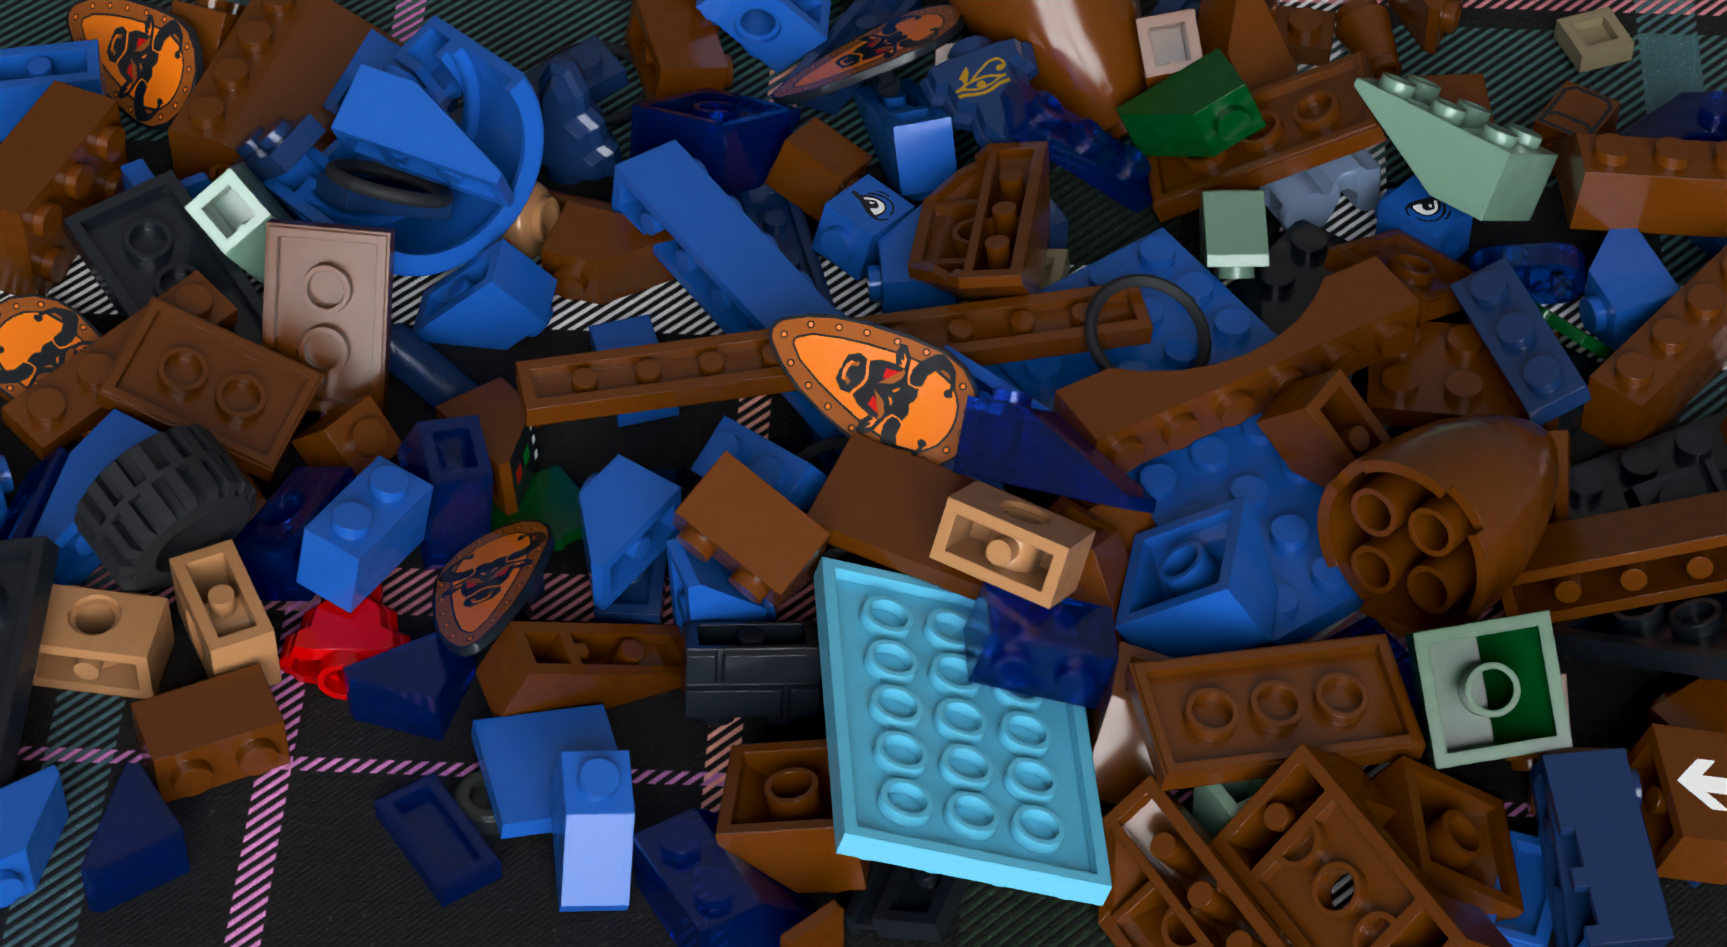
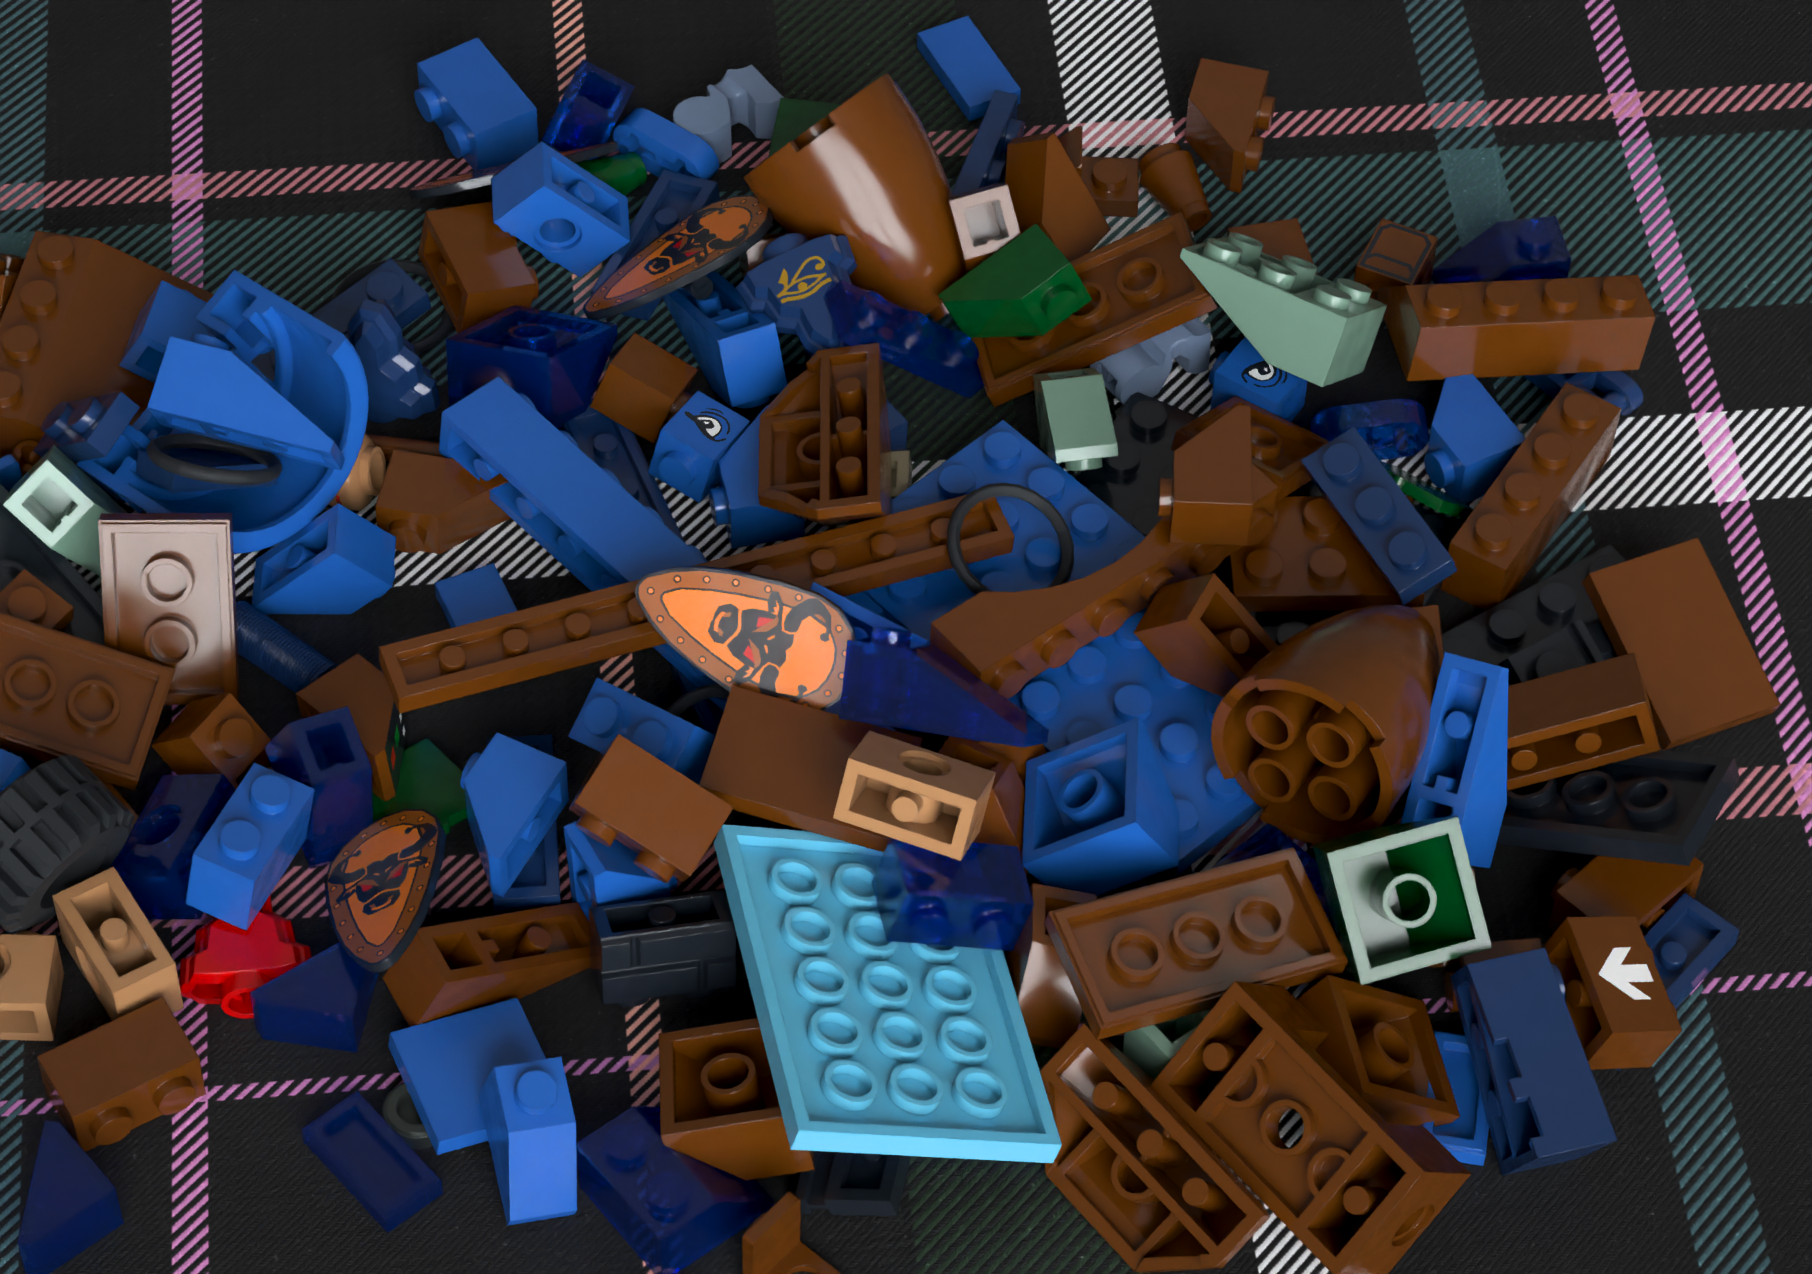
camera: 10 degrees left, 5 degrees up
(1349, 288) = (1211, 484): none -> reddish brown slope
(1572, 563) = (1465, 755): none -> blue slope
(1594, 39) = (1398, 165): dark tan plate -> none

